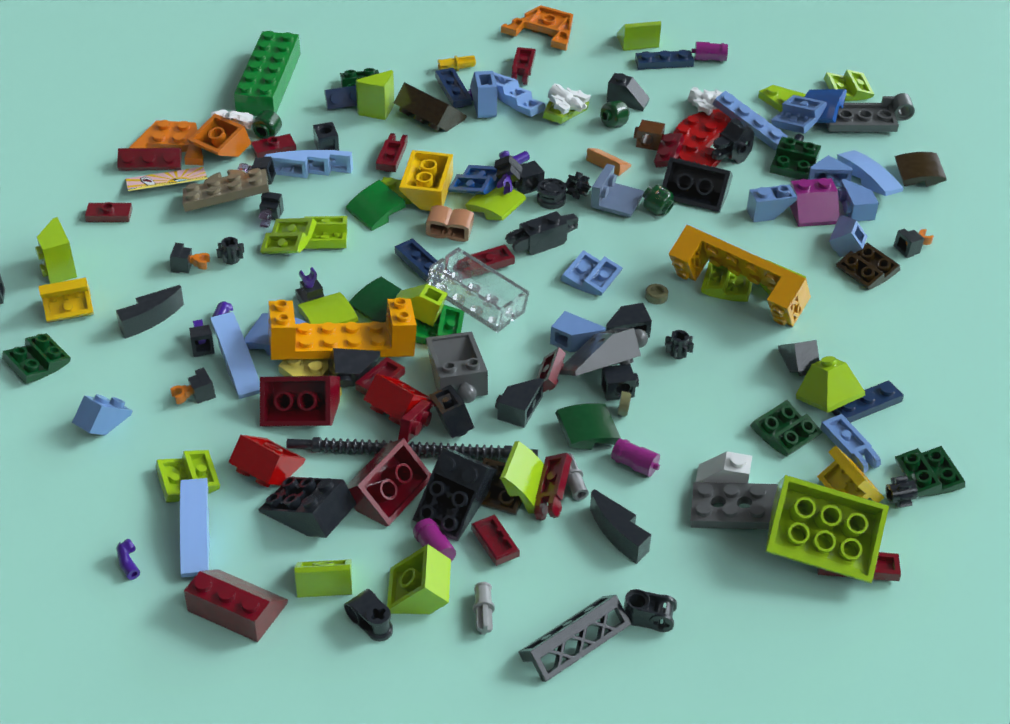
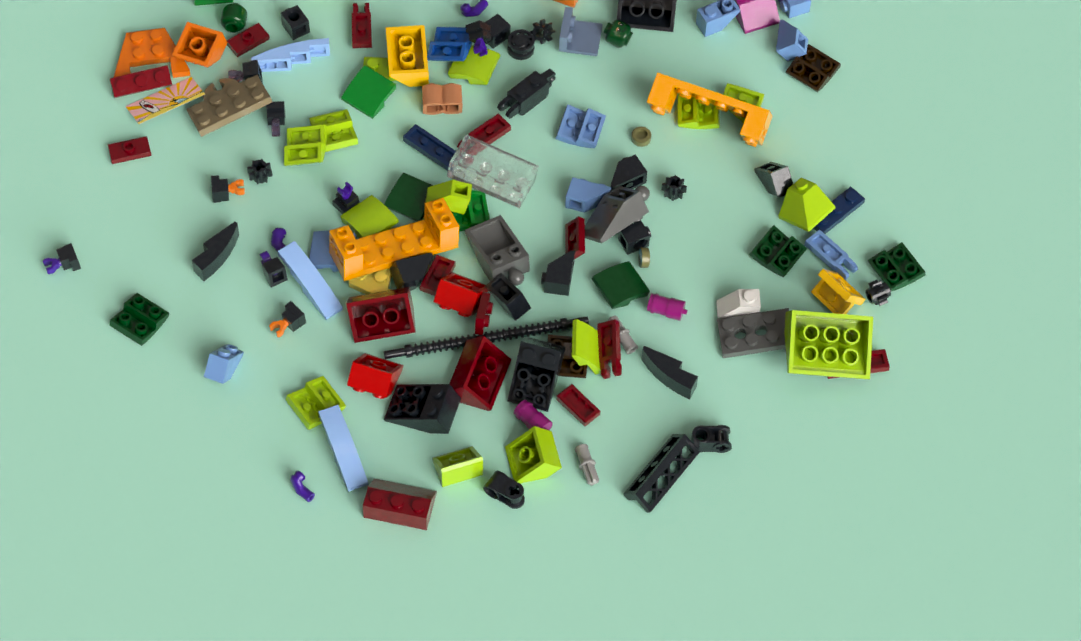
camera: 15 degrees left, 15 degrees up
(55, 253) = (112, 211): lime slope -> none
(66, 299) = (141, 257): yellow bracket -> none
(239, 117) = (202, 18): white animal -> none
(911, 242) = (845, 34): black piece -> none

